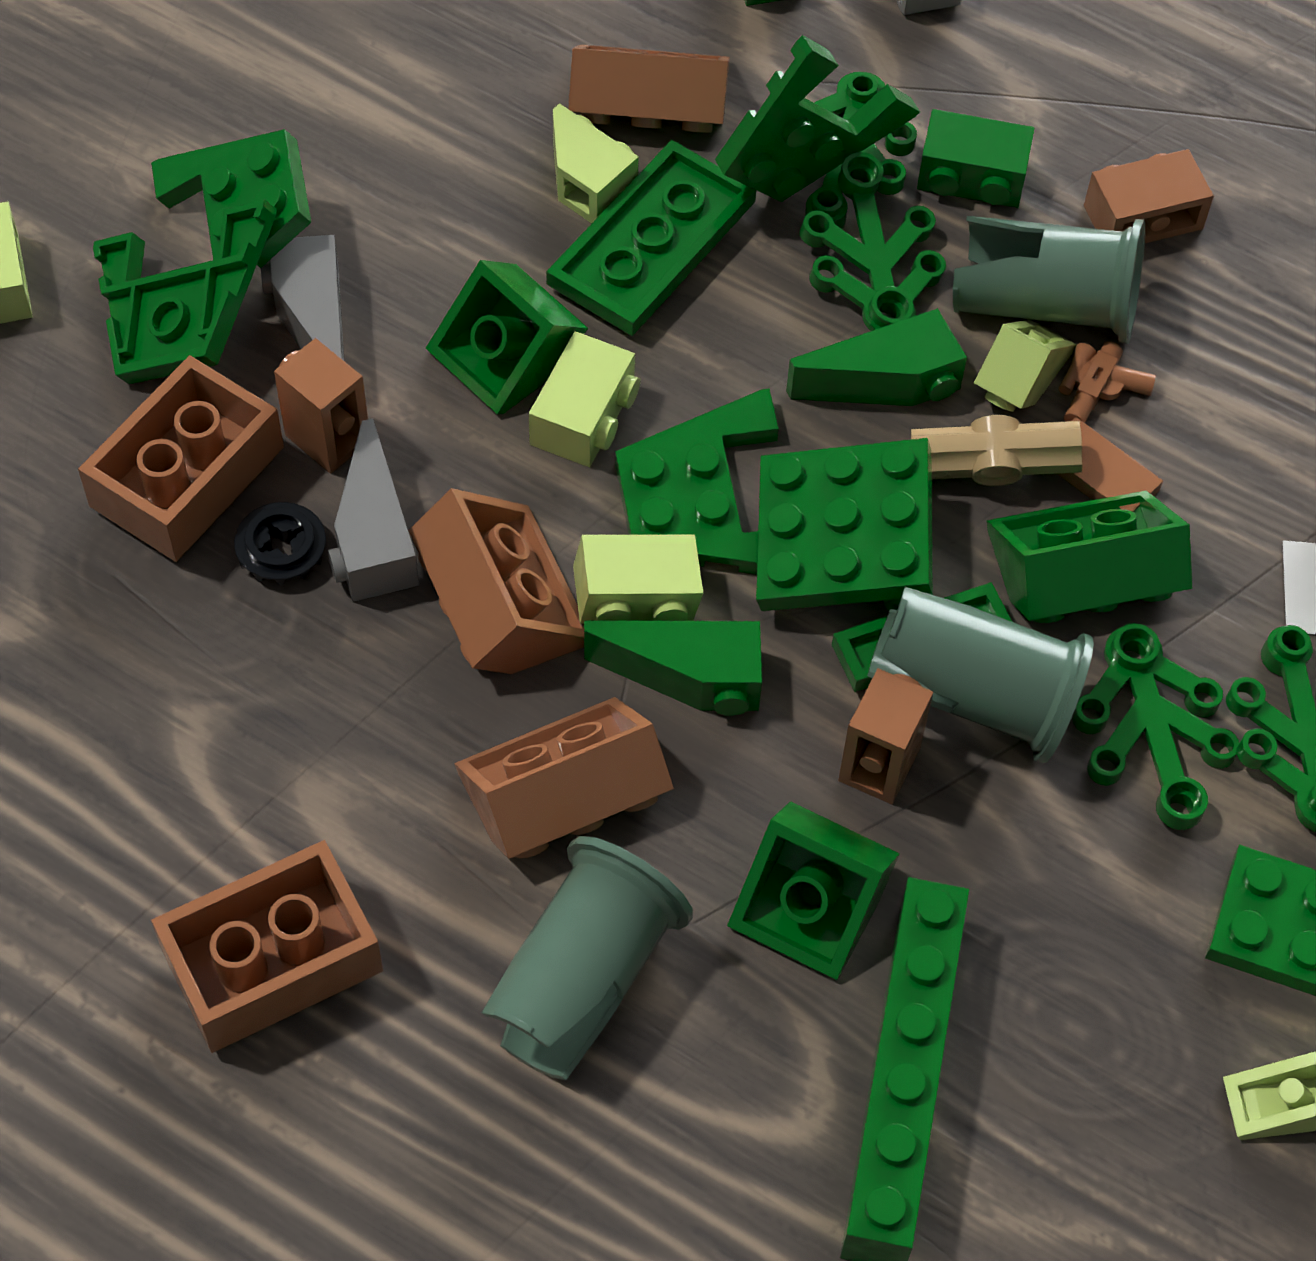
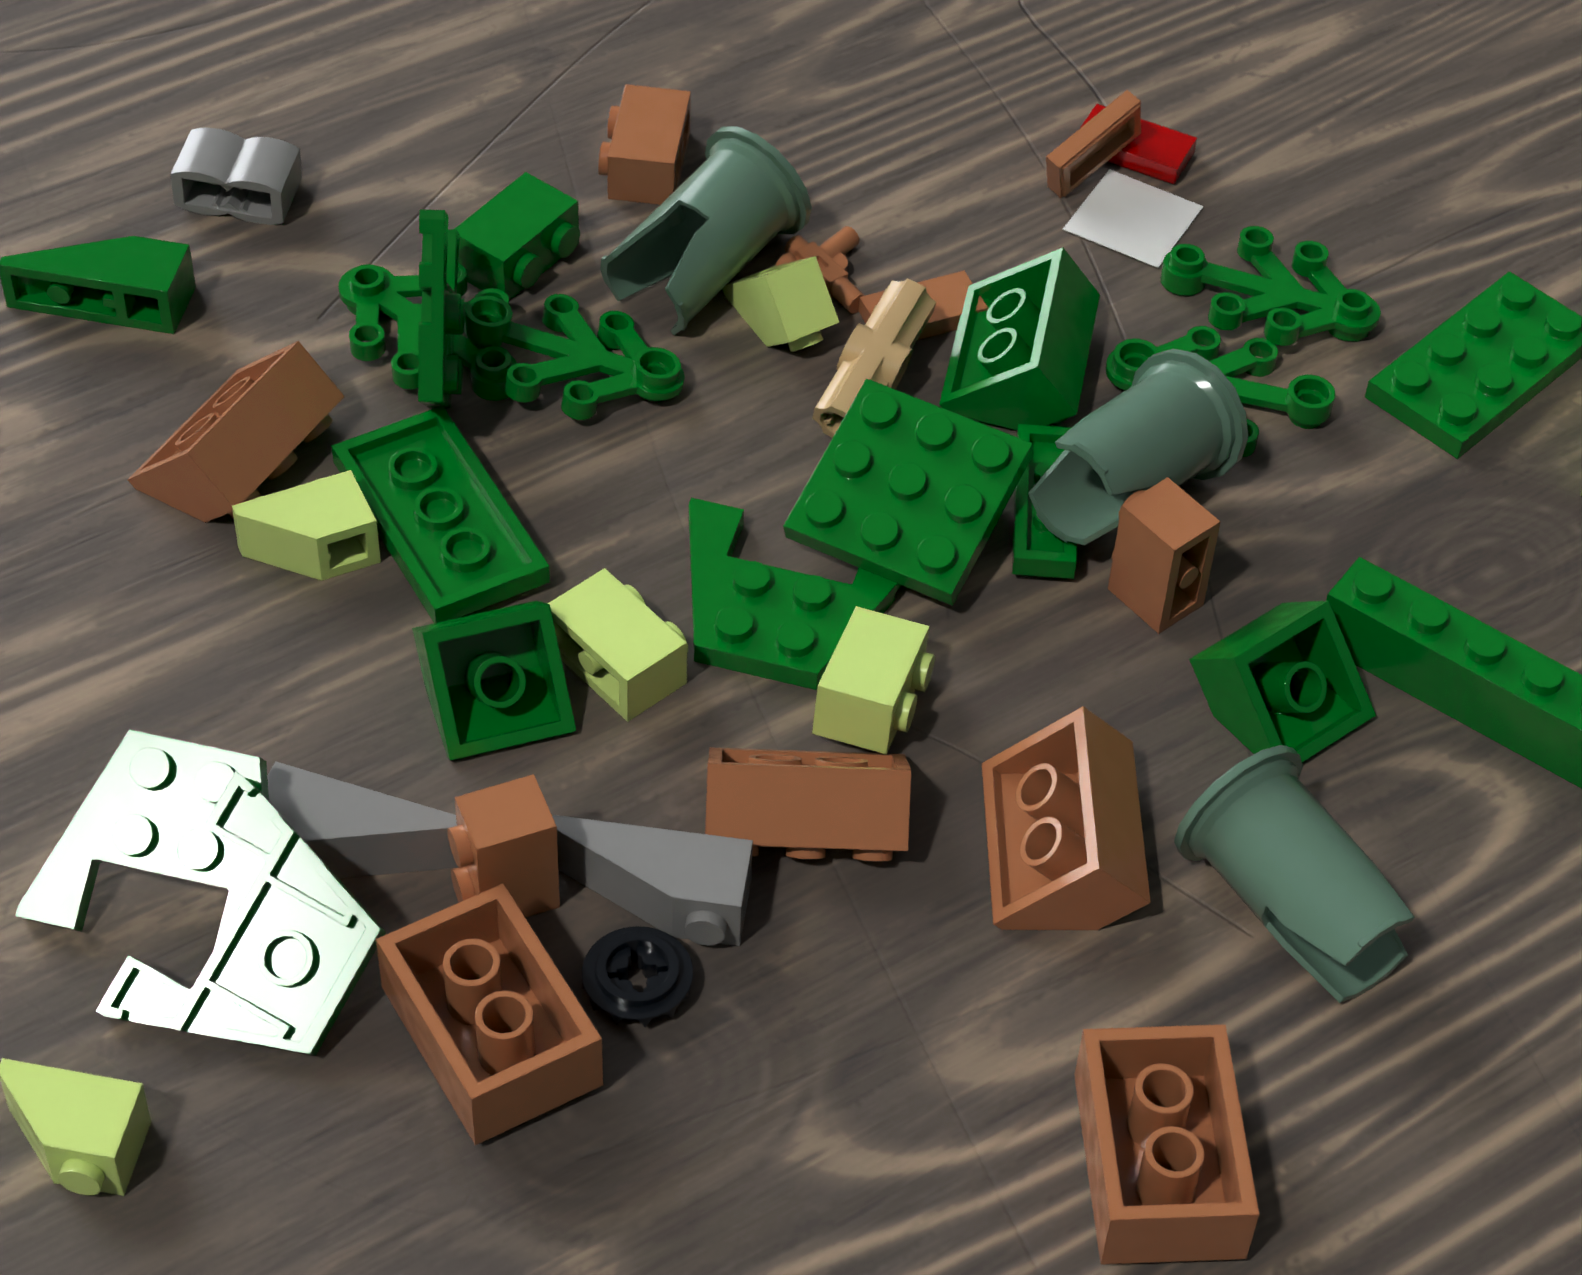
camera: 65 degrees left, 10 degrees down
(691, 661) = (985, 681): green slope -> none
(886, 366) = (726, 396): green slope -> none

